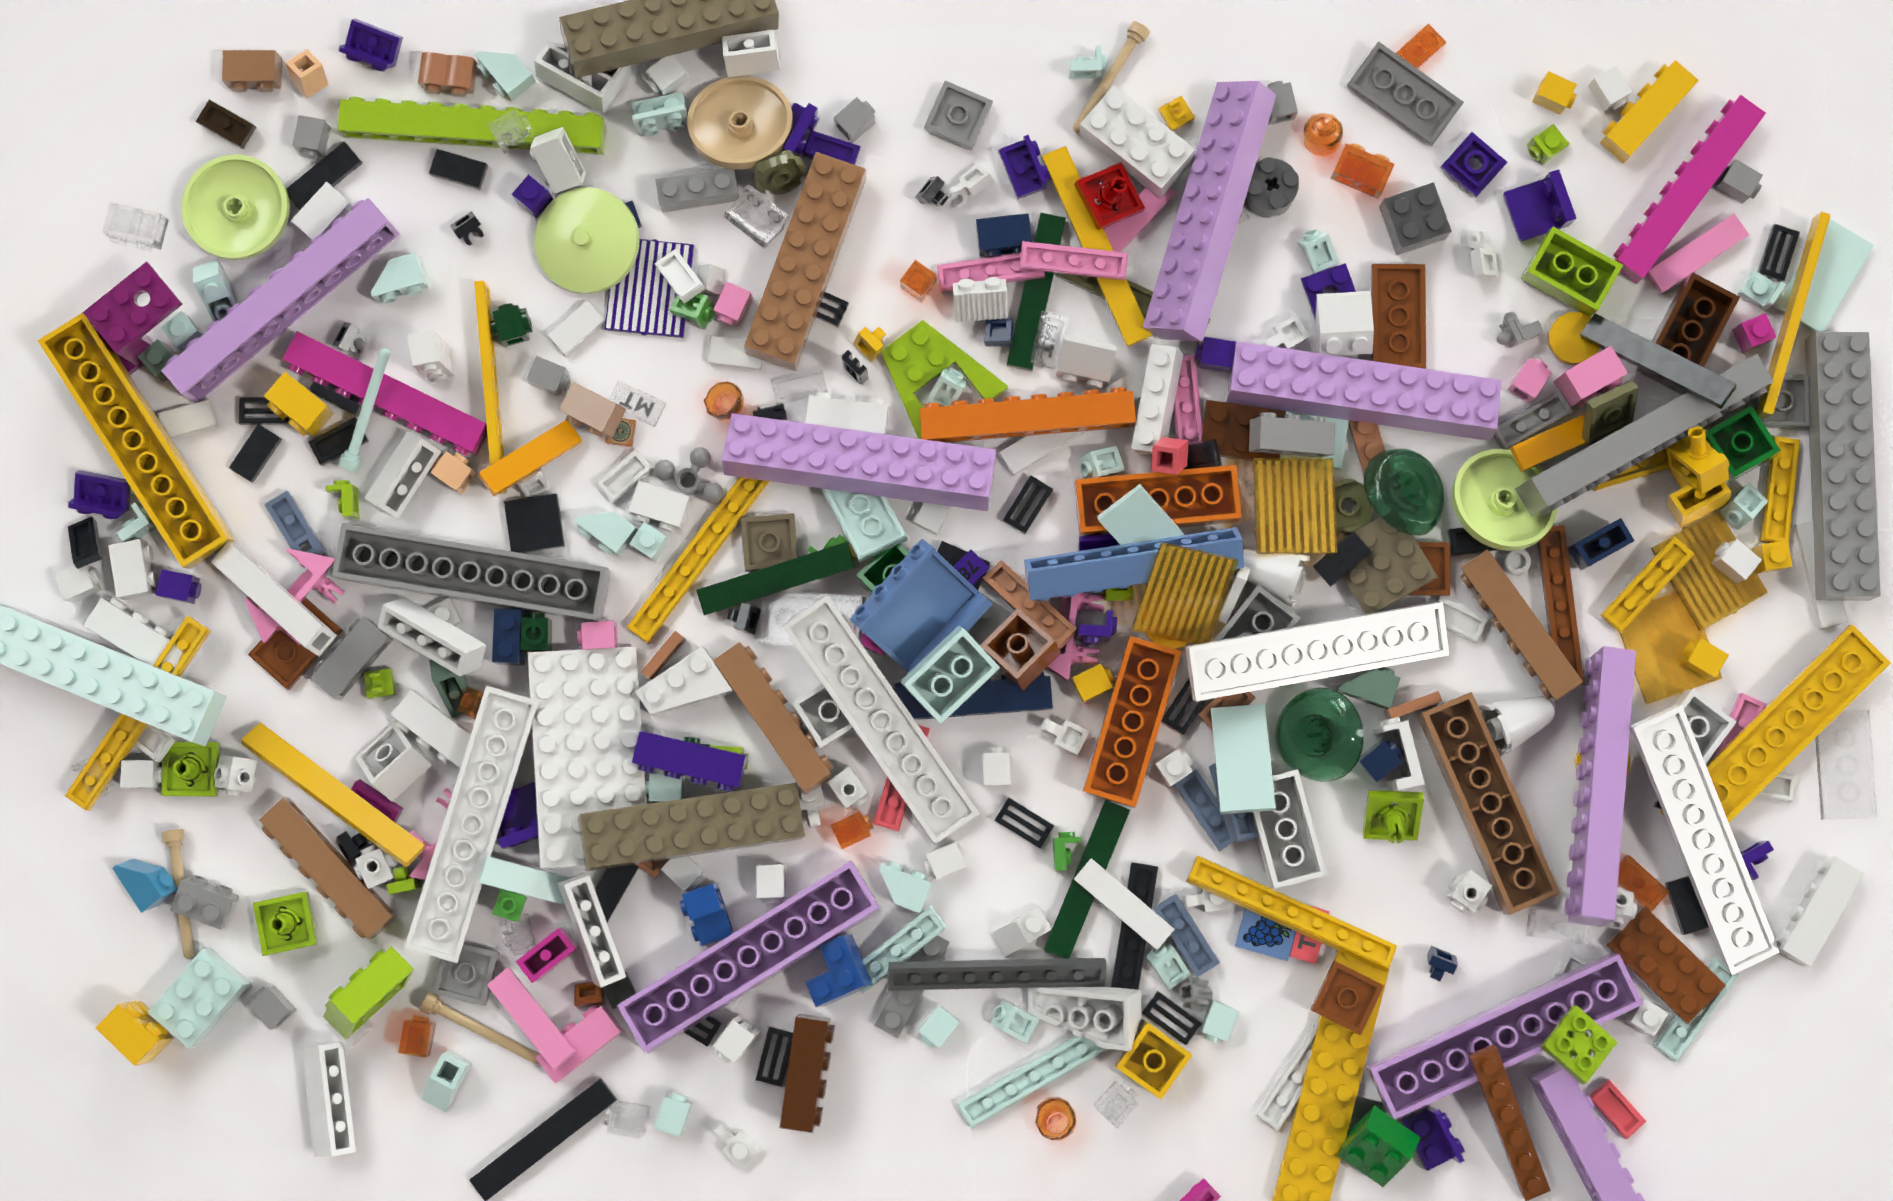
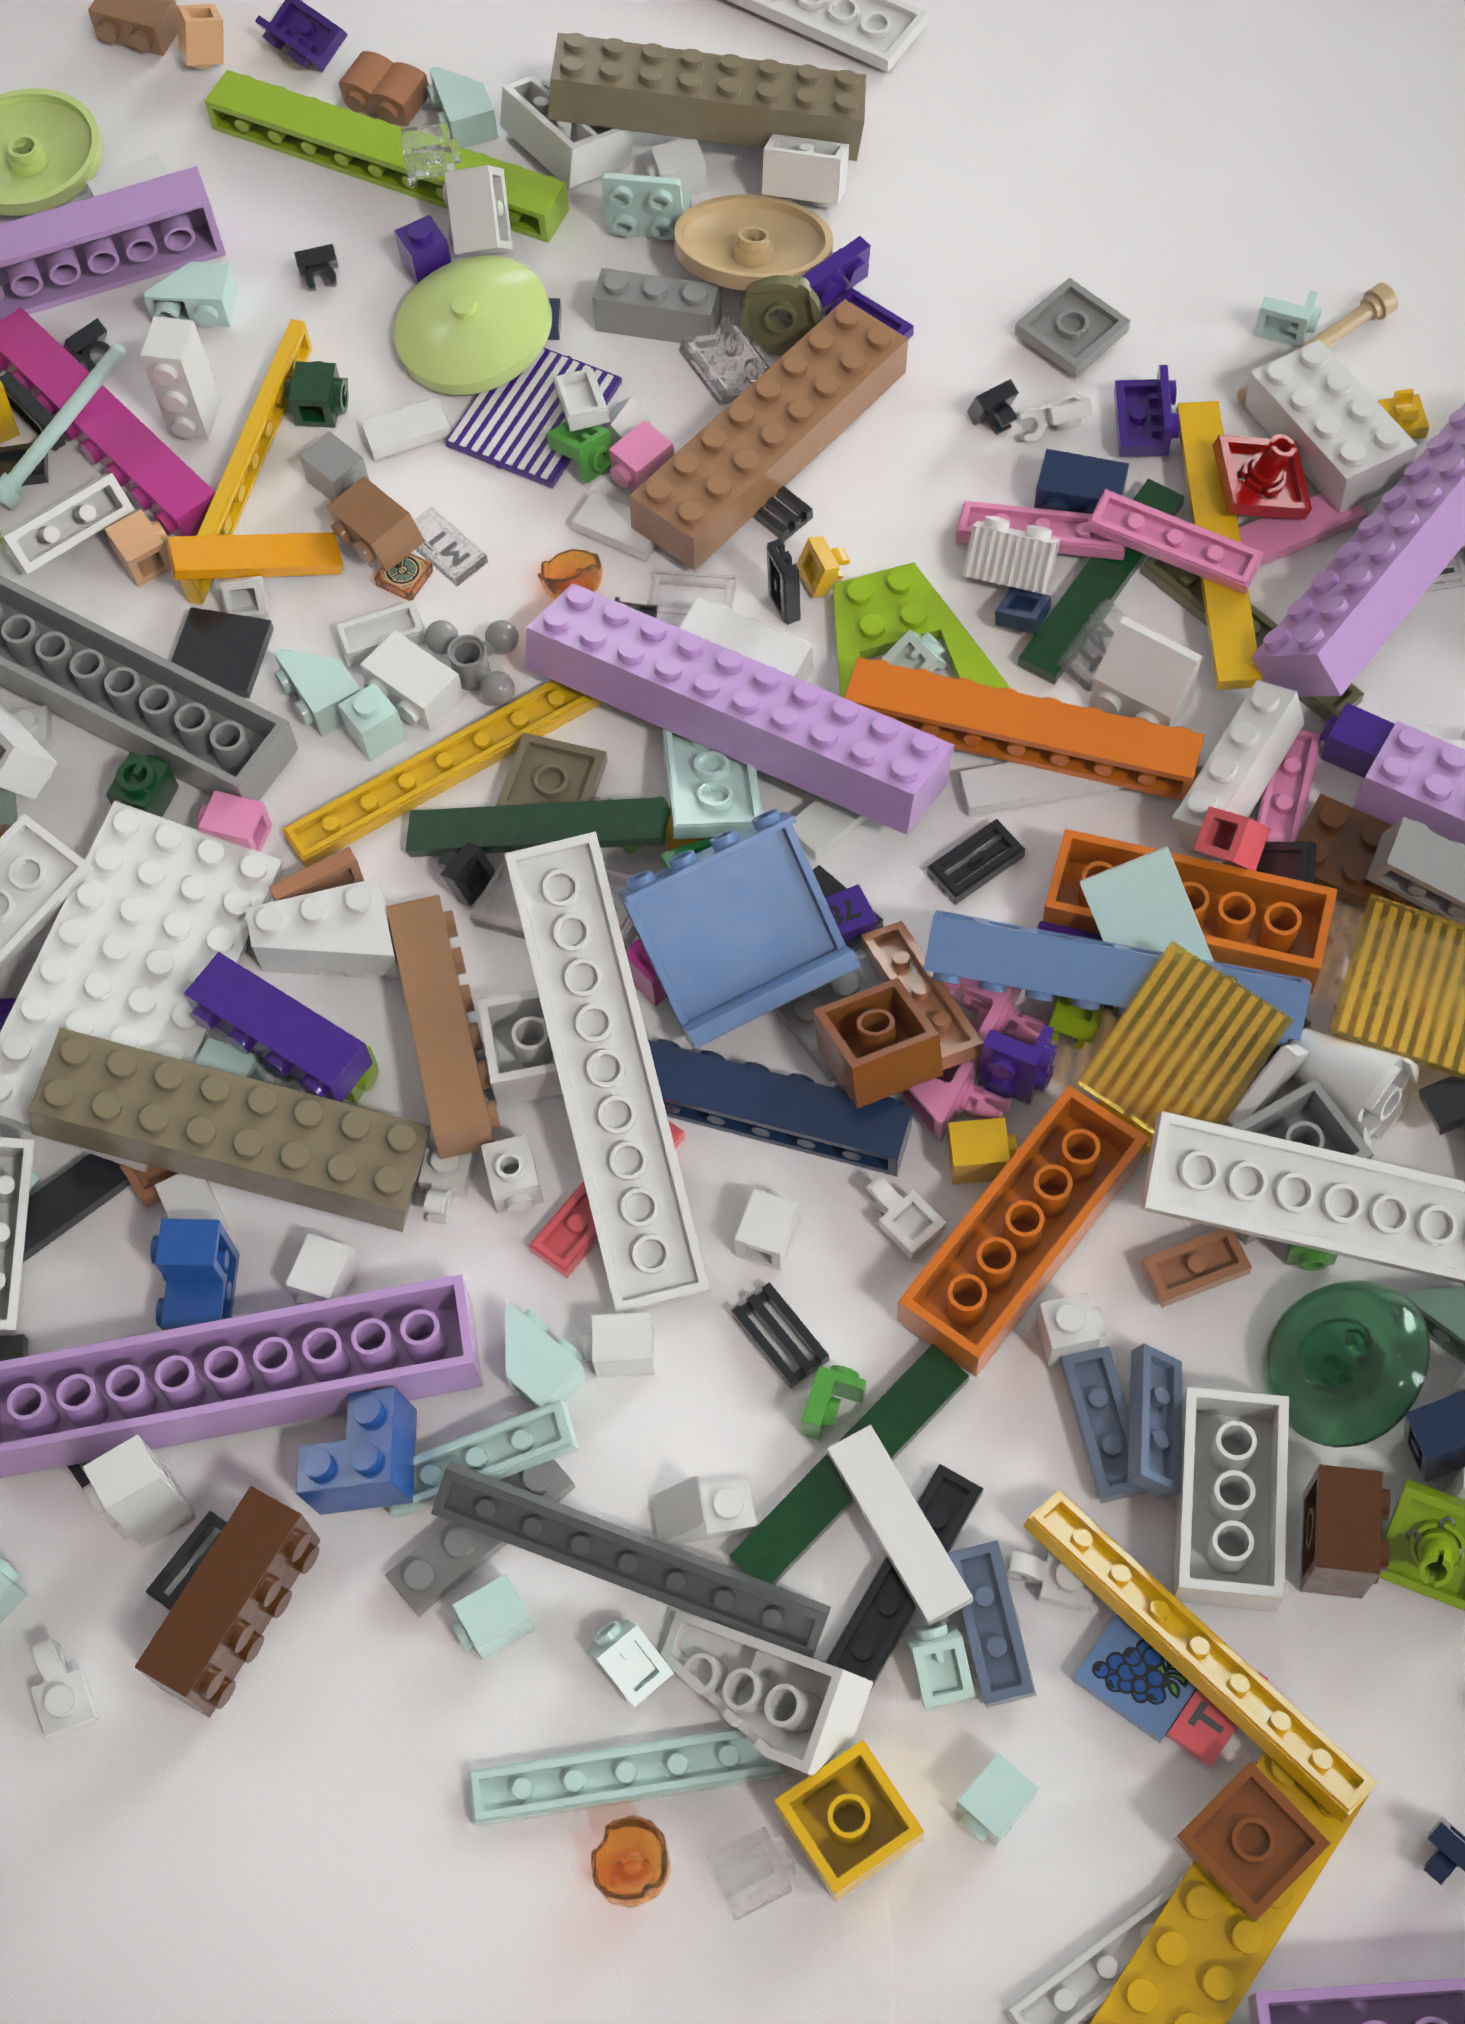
camera: 25 degrees right, 20 degrees down
(226, 124) = (68, 67): dark brown plate -> none
(311, 136) = (169, 107): light grey brick -> none
(330, 169) = (176, 152): black tile -> none
(458, 169) = (342, 201): black tile -> none
(507, 637) = (85, 788): dark blue brick -> none
(852, 829) = (489, 1240): clear orange brick -> none
(855, 119) = (919, 289): light grey brick -> none
(918, 281) = (927, 507): clear orange brick -> none
(949, 674) = (745, 1034): light aqua brick -> none
(1101, 463) = (1119, 825): light aqua bracket -> none
(1153, 1004) = (937, 1803): black tile -> none
(1174, 724) = (1097, 1268): black tile -> none
(1195, 993) = (970, 1732): light grey gear -> none
(1242, 759) = (1195, 1347): light aqua tile -> none
(1345, 827) = (1343, 1531): none -> reddish brown brick

